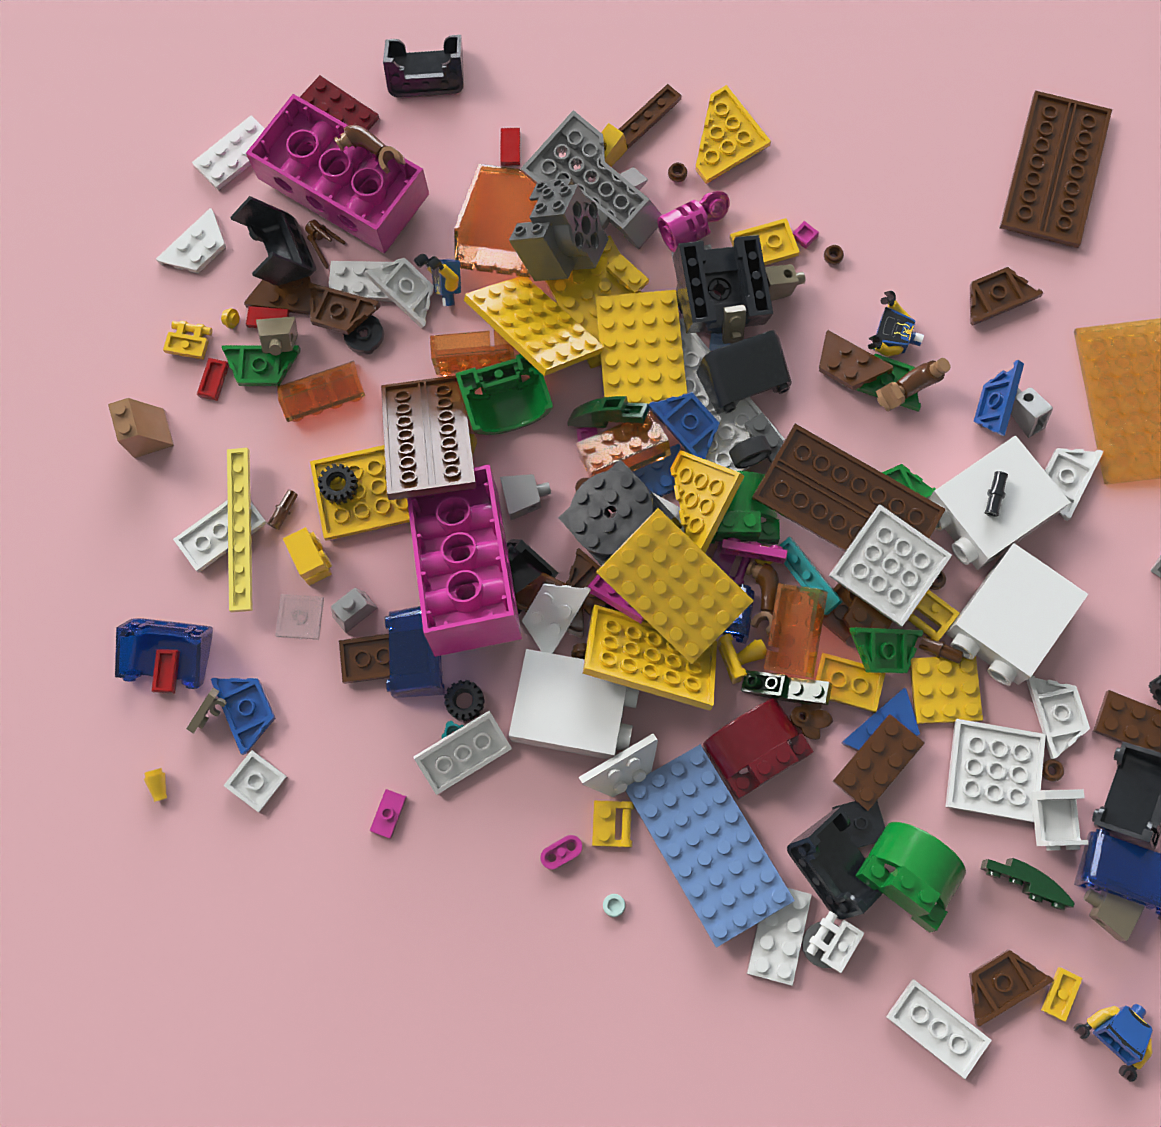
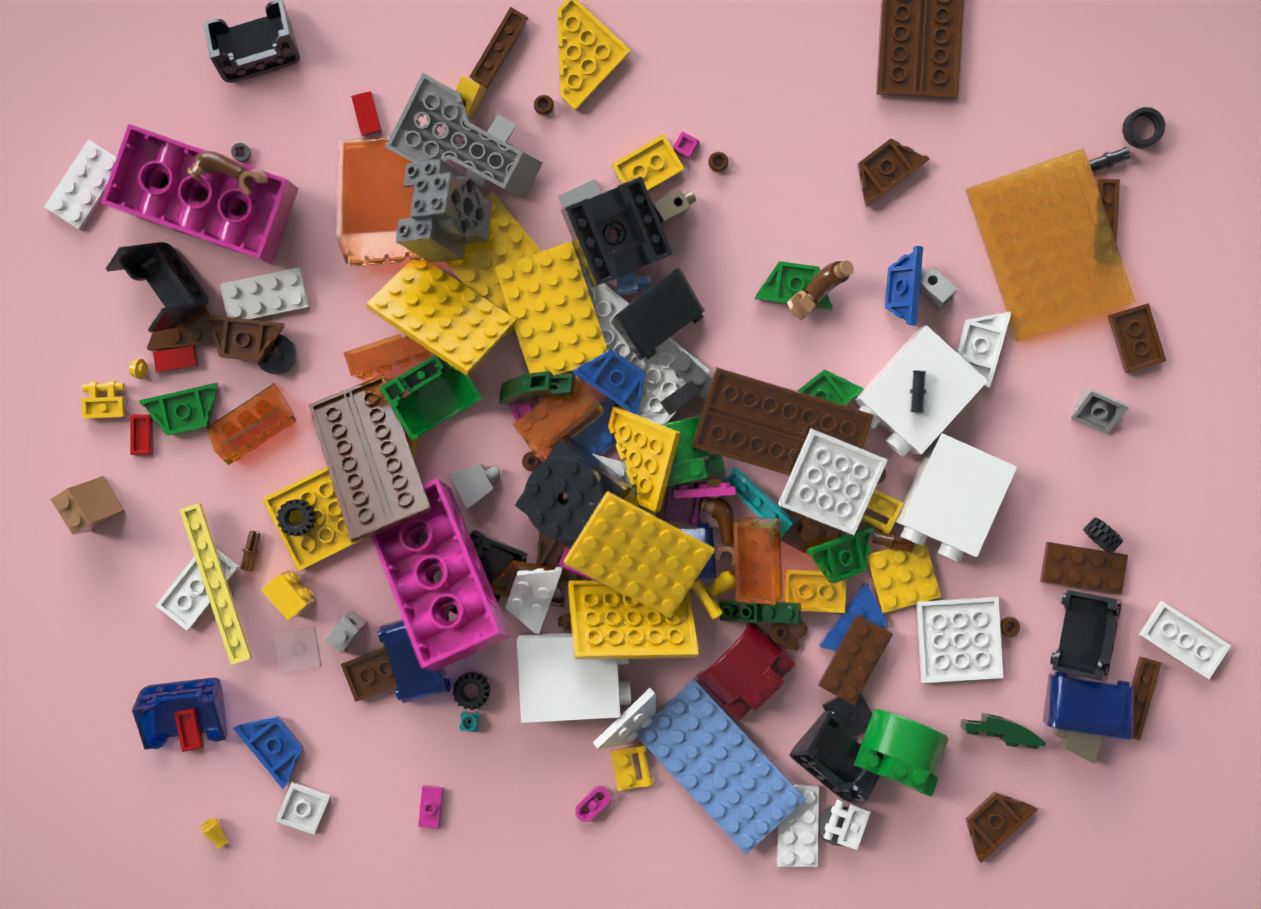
camera: 20 degrees left, 15 degrees up
(195, 246) = (78, 297): white wing -> none
(209, 703) = (240, 750): dark tan plate -> none
(277, 334) = (191, 379): dark tan torso -> none
(318, 232) = (195, 255): reddish brown plant -> none
(339, 104) = (176, 111): dark red plate -> none
(404, 287) = (302, 299): white wing -> none
(445, 276) = (339, 277): torso -> none
(462, 752) = (482, 740): white plate -> none
(614, 905) = (649, 836): light aqua tile -> none
(627, 274) = (520, 233): yellow plate -> none
(691, 220) = (567, 163): dark pink cylinder -> none
(733, 324) = (637, 271): dark tan plate -> none
(850, 363) = (755, 277): reddish brown wing -> none
(894, 329) = (793, 232): torso -> none
(938, 1028) = (947, 871): white plate -> none
(1057, 819) = (1020, 671): white panel -> none
(1058, 713) = (1007, 575): white wing -> none
(1061, 994) = (1046, 818): yellow plate -> none
(1123, 1034) = (1101, 839): blue torso -> none

